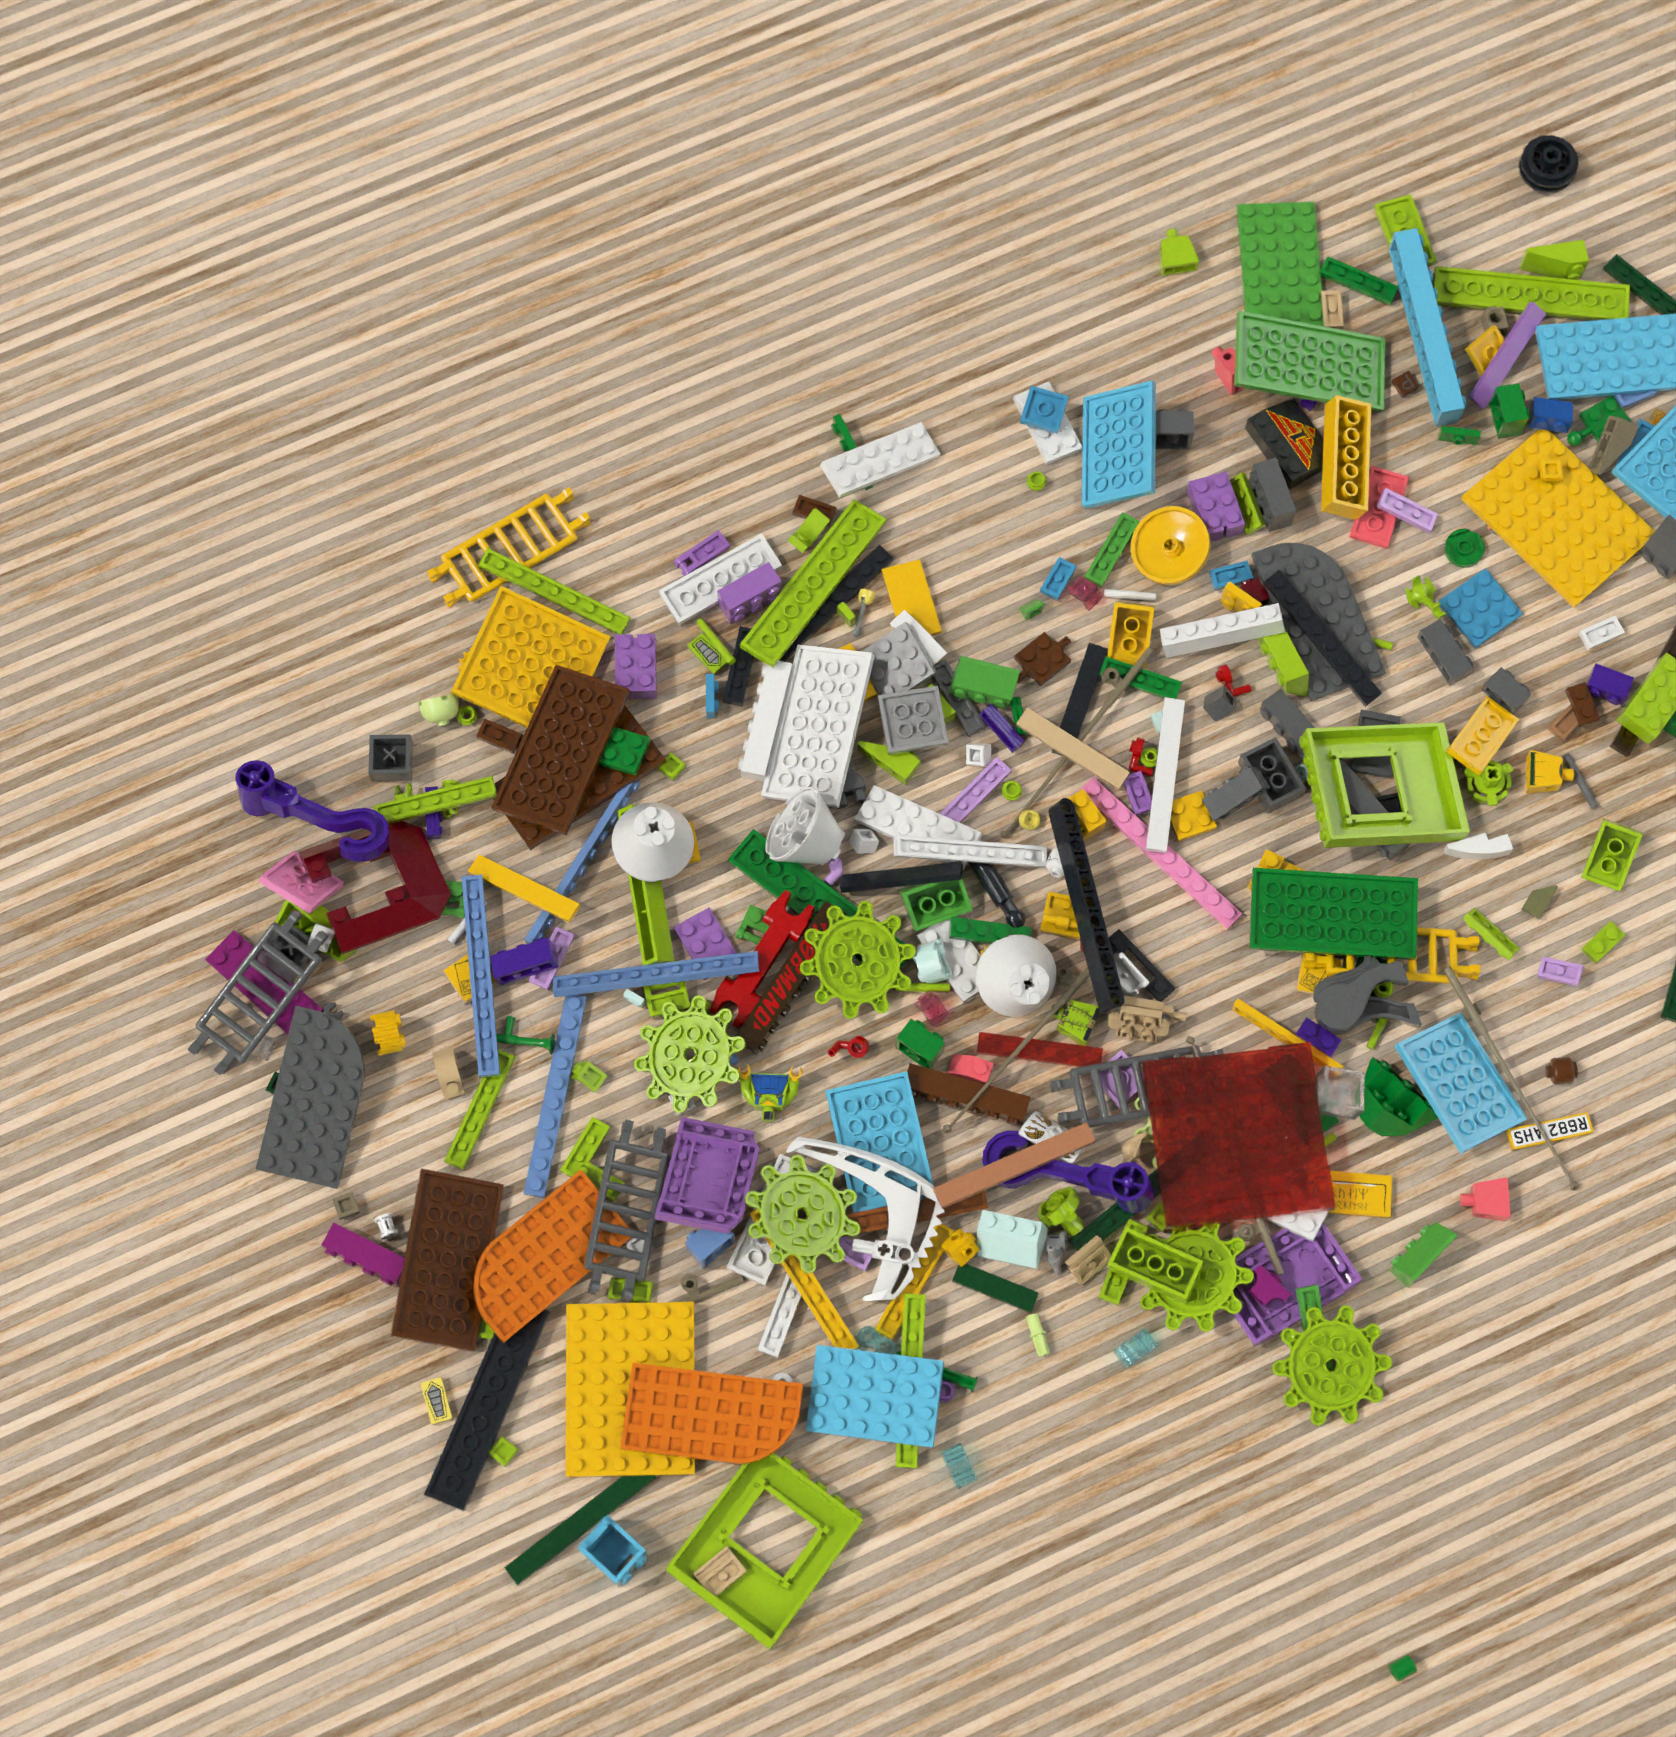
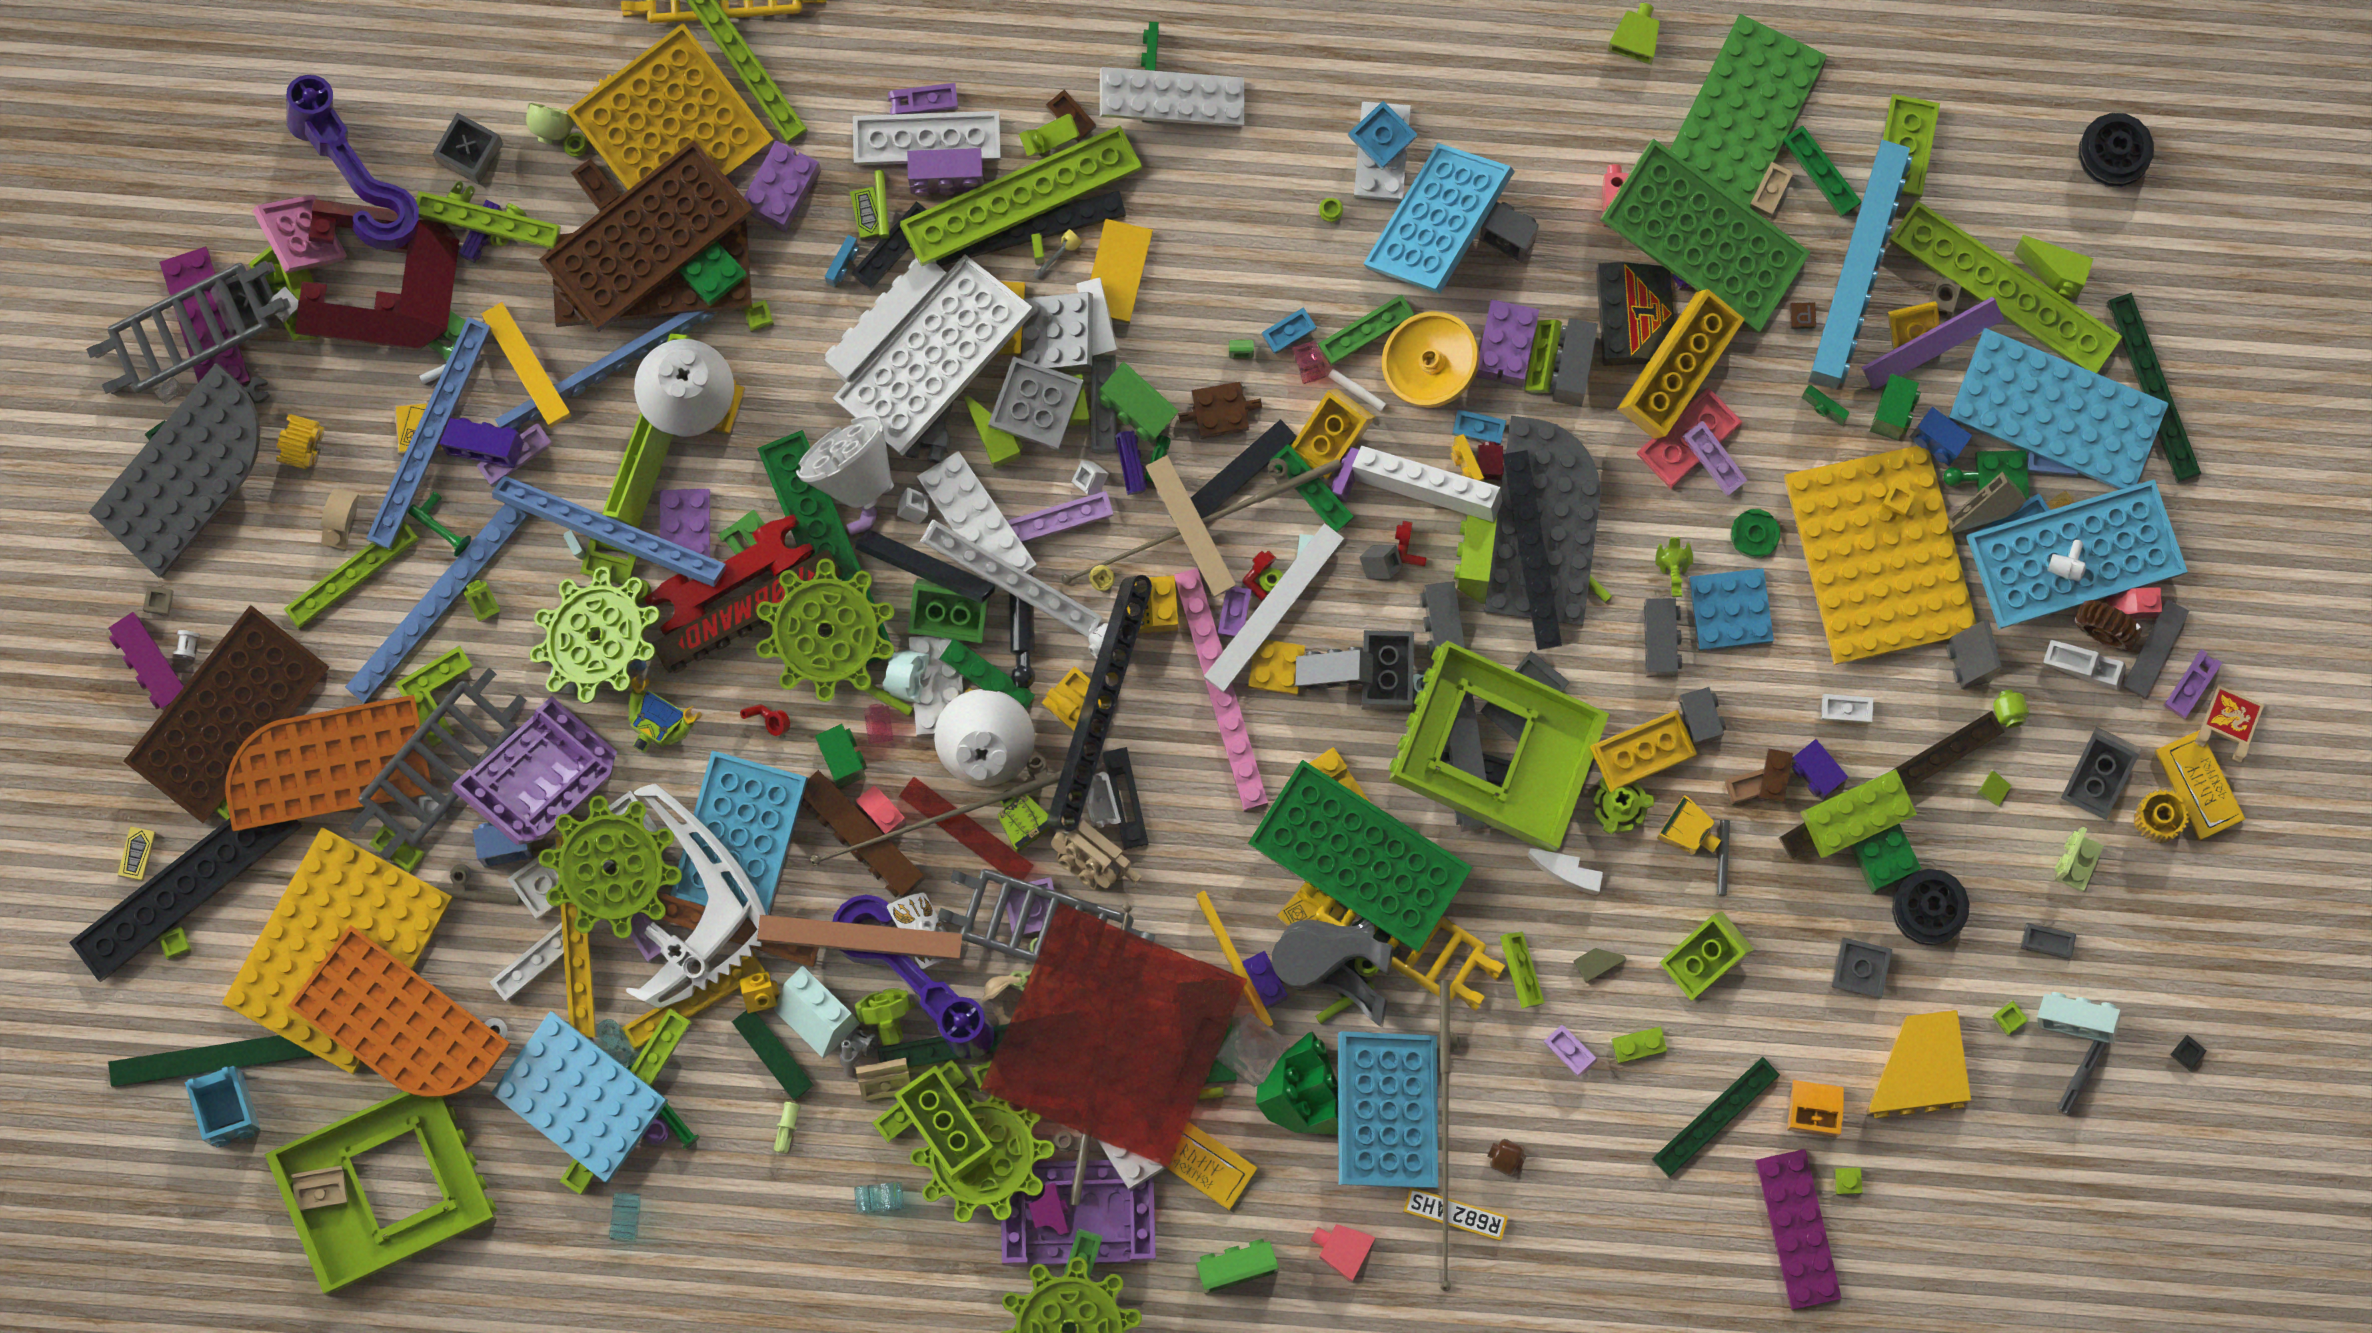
camera: 30 degrees right, 5 degrees up
(1011, 790) = (1102, 536): lime plate -> none
(1160, 663) = (1344, 482): none -> medium lavender plate

